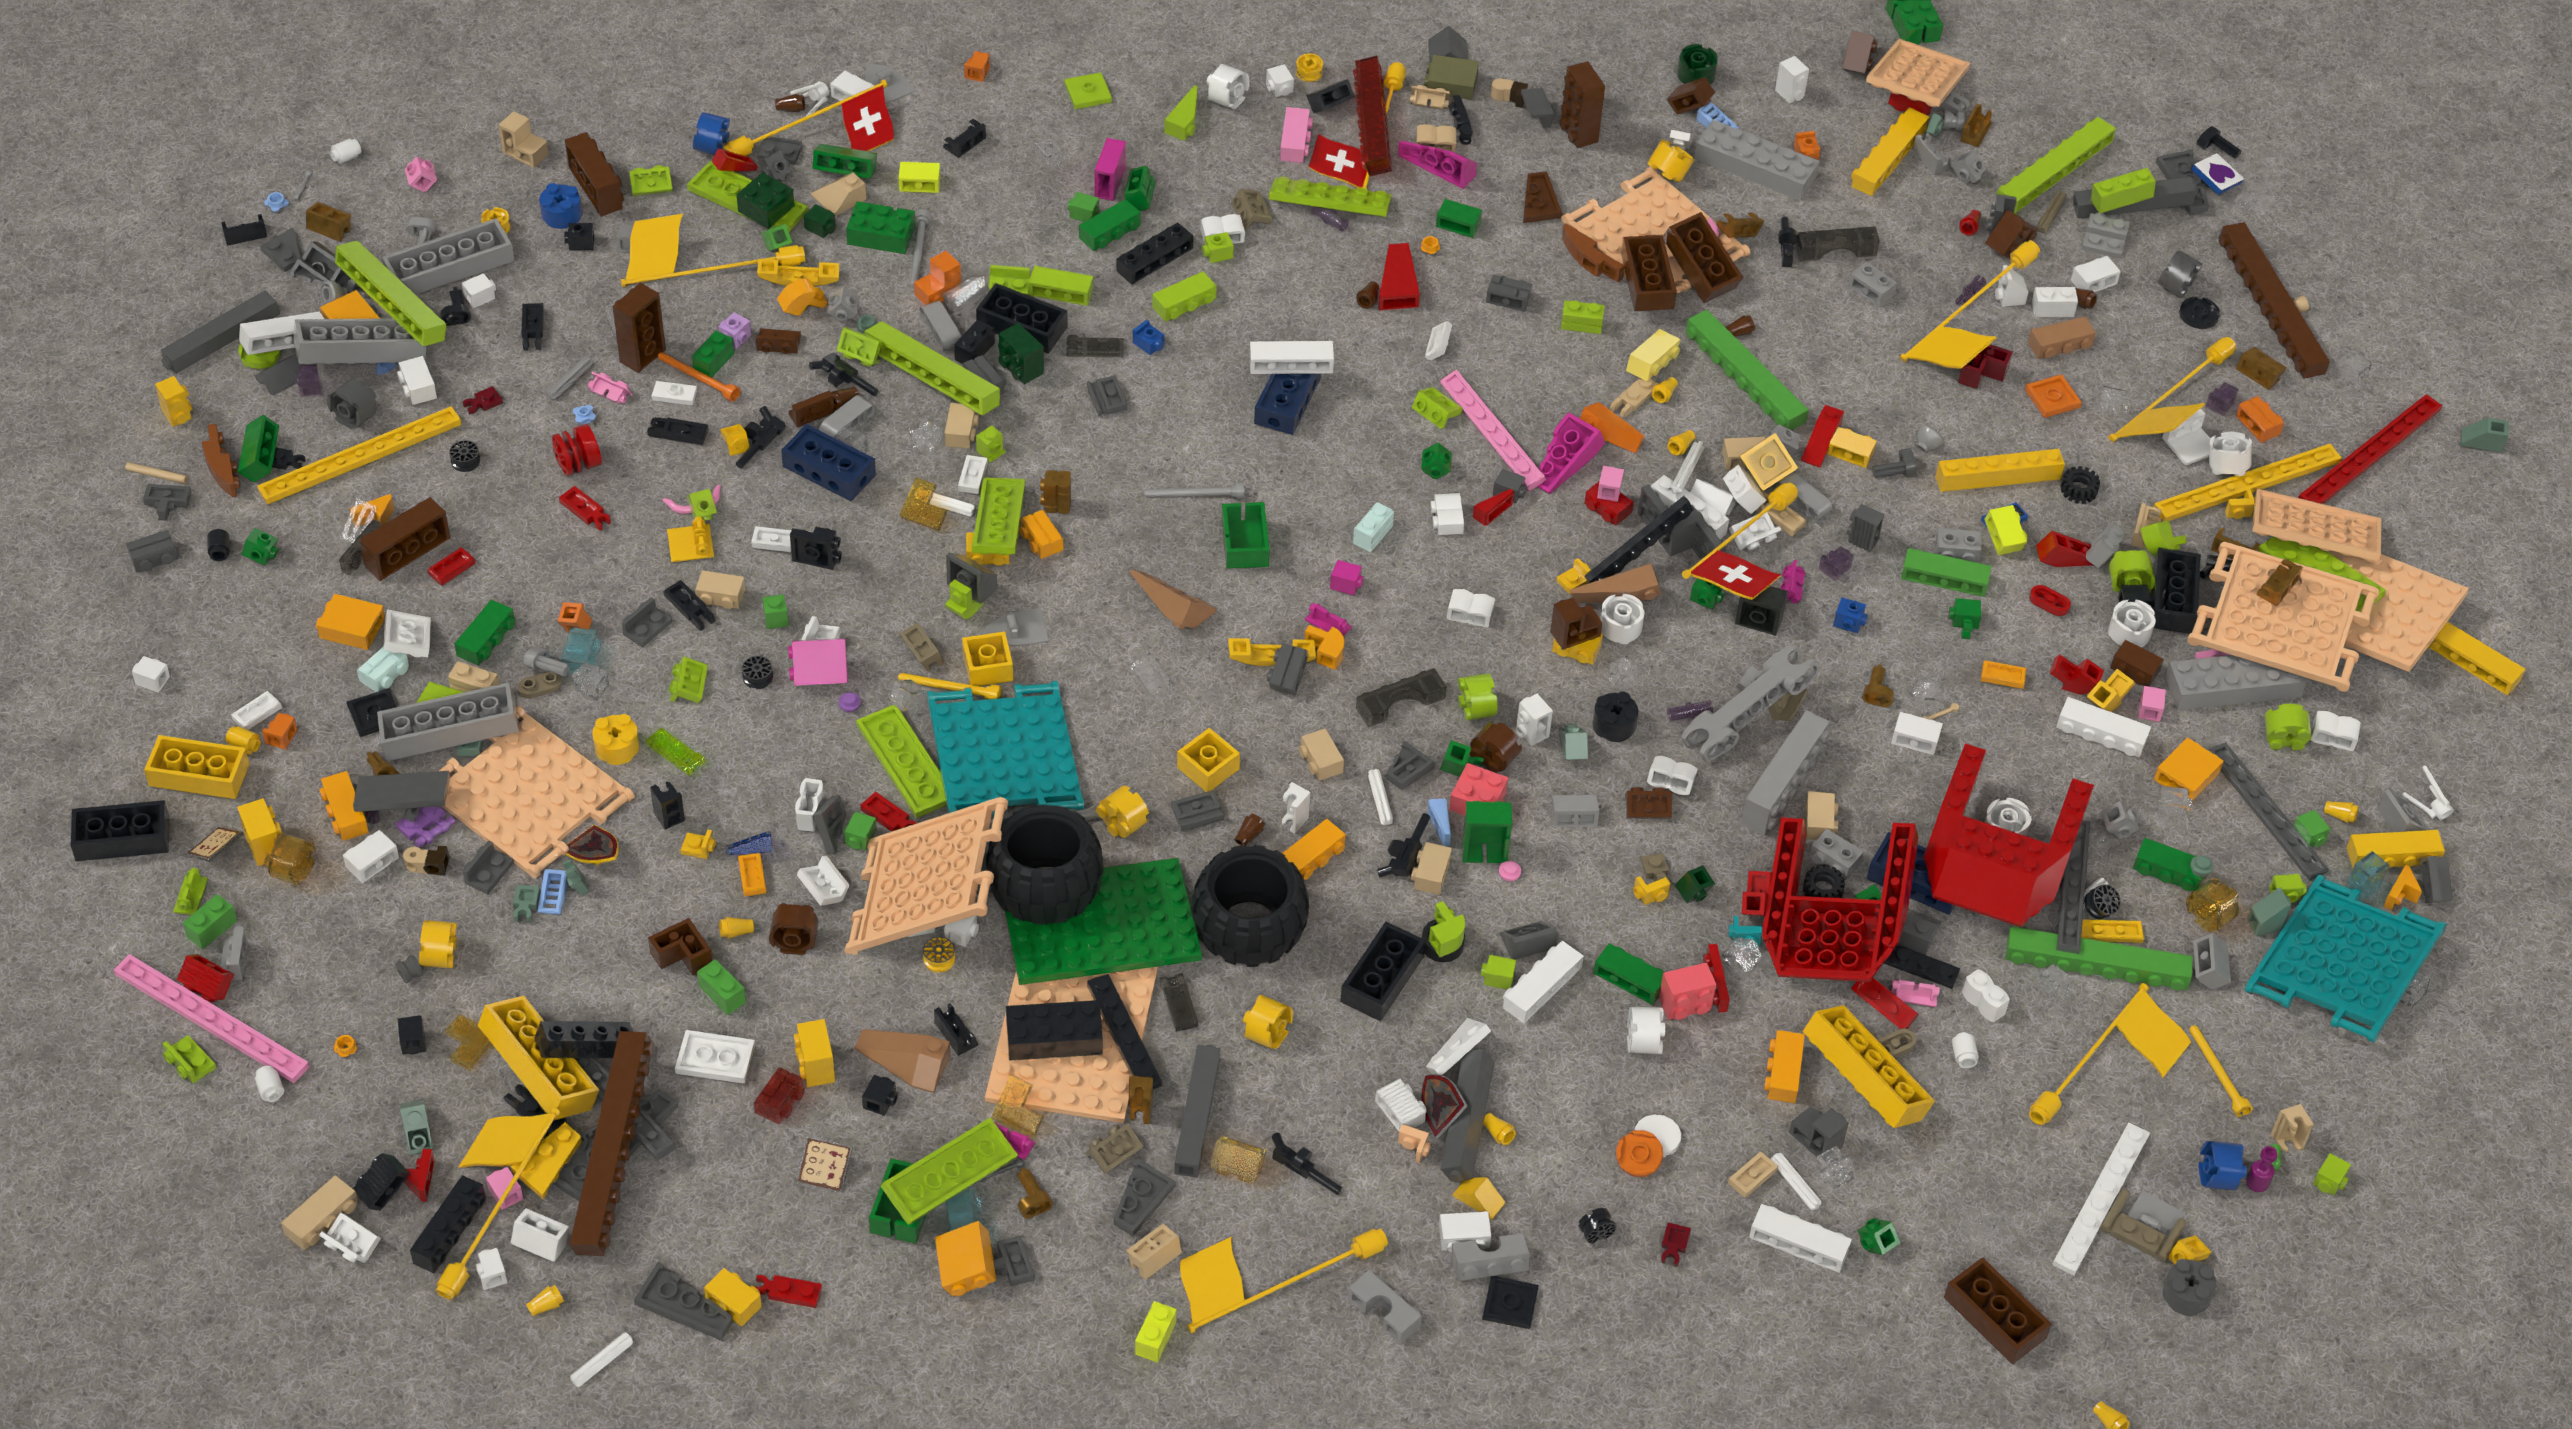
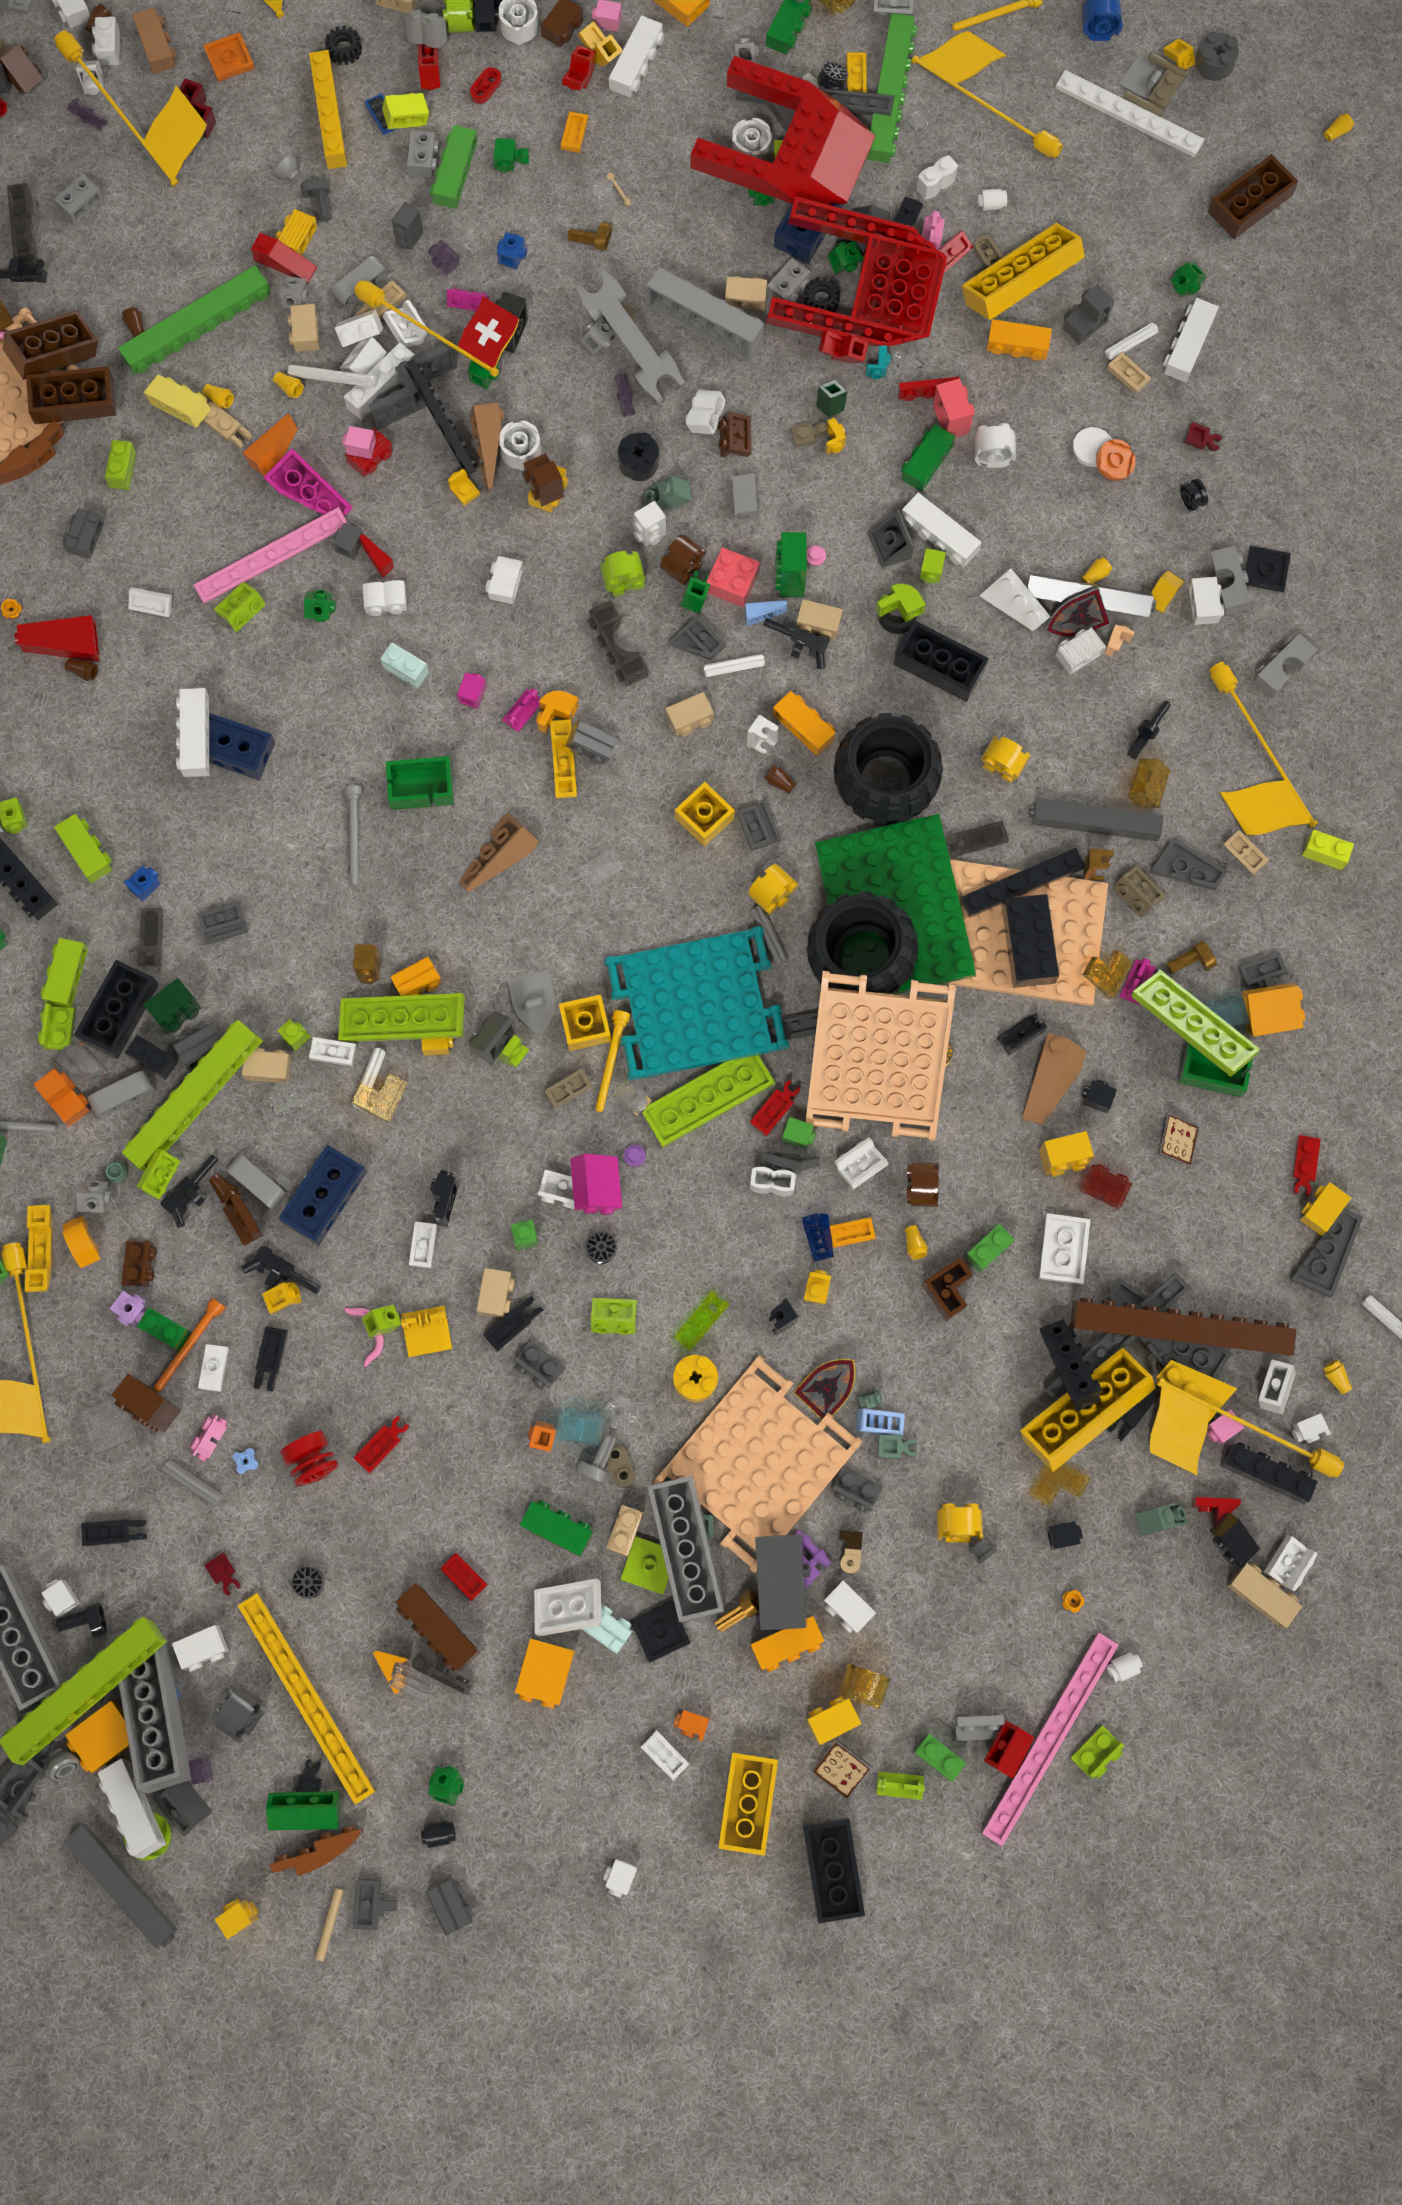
camera: 90 degrees left, 25 degrees up
(243, 738) = (705, 1762): yellow brick -> none
(1768, 461) = (329, 301): yellow brick -> none
(1917, 733) = (647, 207): white brick -> none

